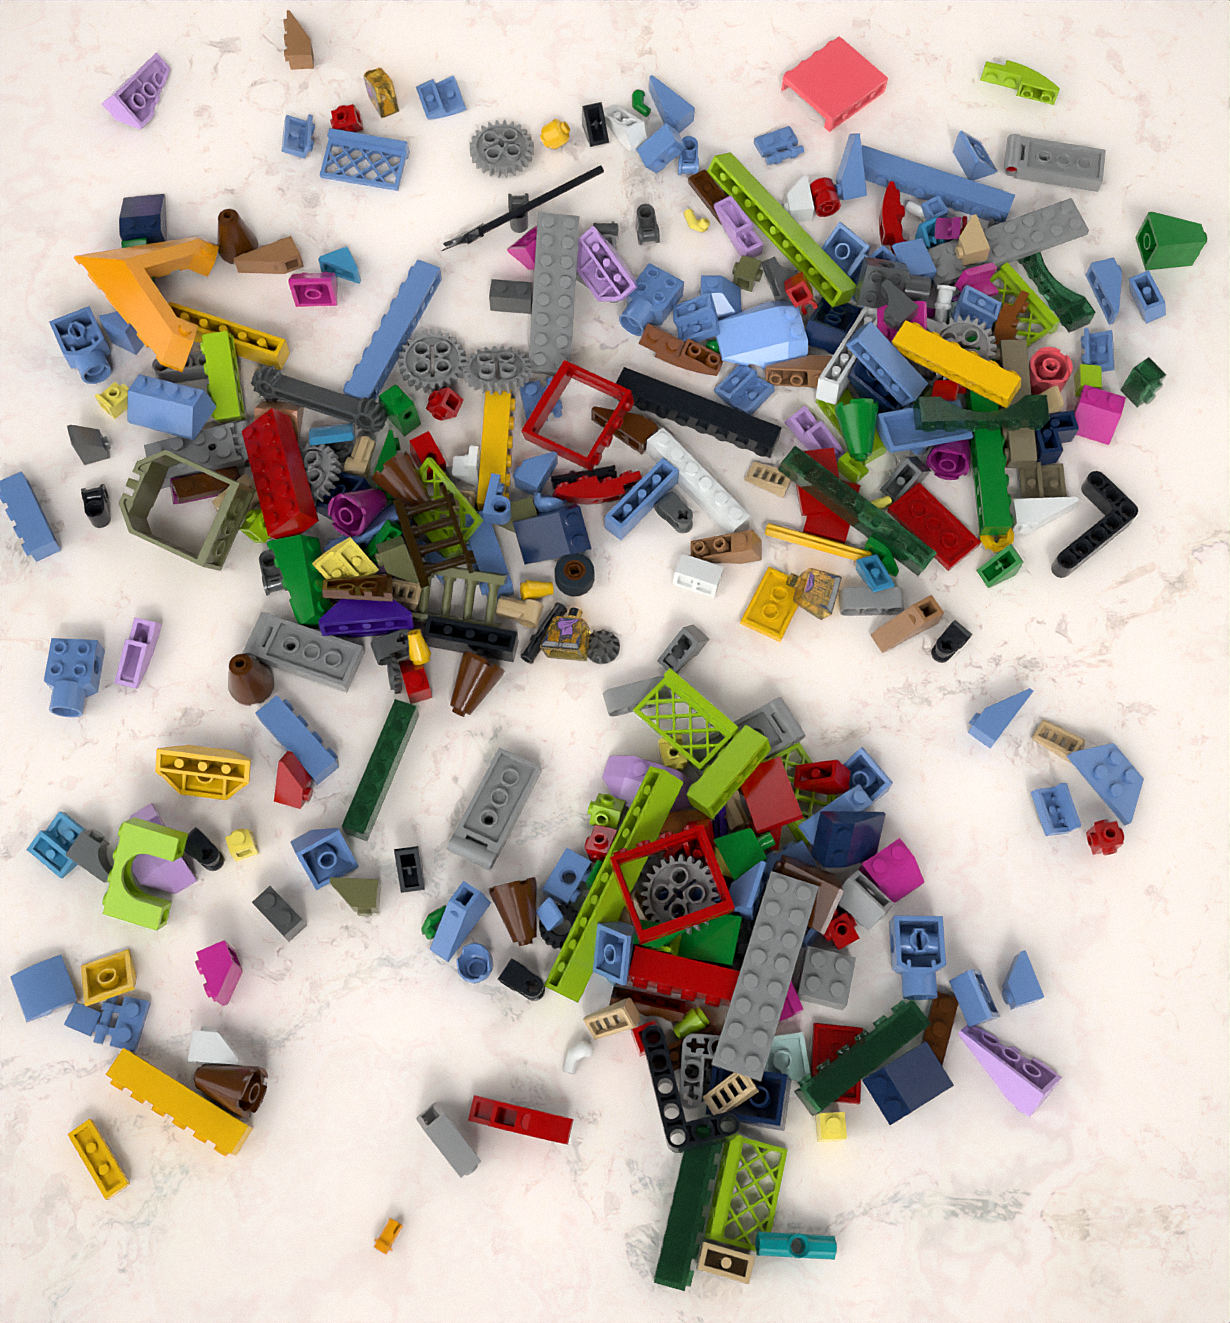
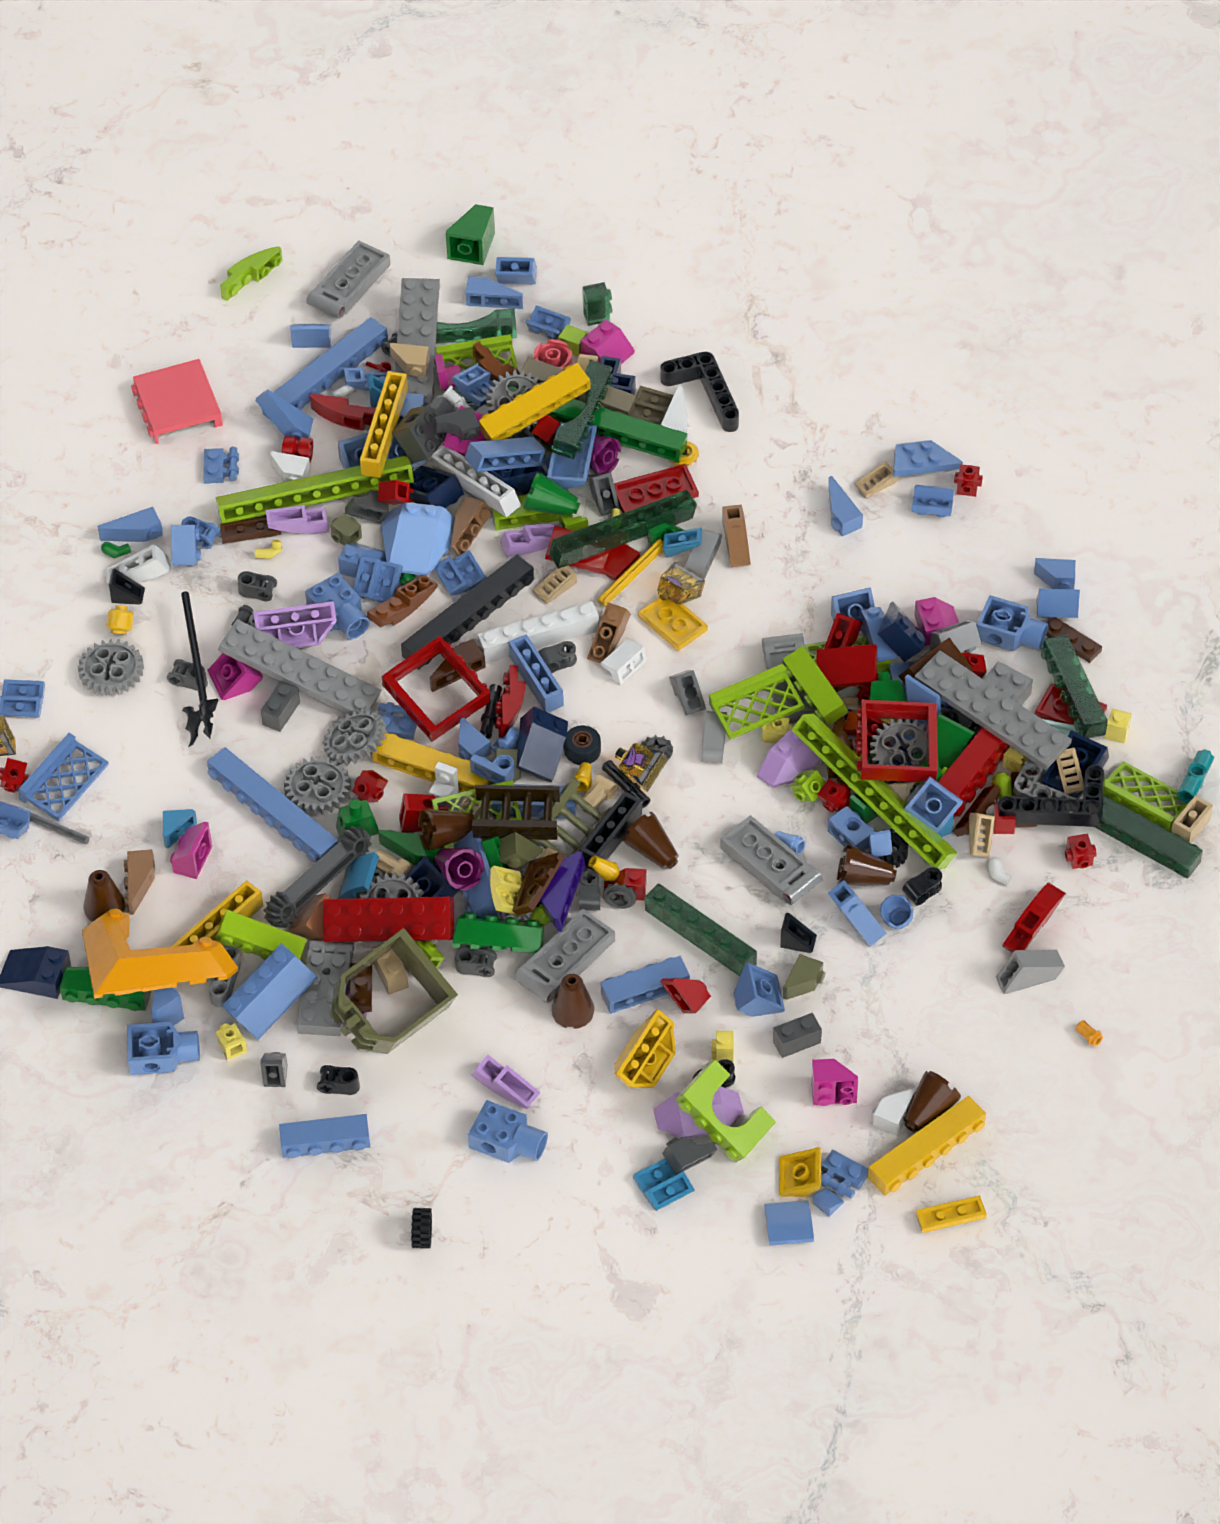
camera: 65 degrees left, 15 degrees down
(310, 173) = (59, 828): none -> flat silver bar
(428, 927) = (847, 934): green arm -> none
(530, 820) = (794, 842): none -> light blue cone
(638, 1135) = (1080, 851): none -> red brick
(877, 243) = (383, 423): none -> yellow brick
(907, 1083) = (1106, 668): dark blue slope -> none
(948, 228) = (386, 364): magenta slope -> none
(951, 640) = (762, 516): black piece -> none
(1001, 566) = (713, 458): green slope -> none
(1018, 1078) = (1130, 599): lavender wedge -> none

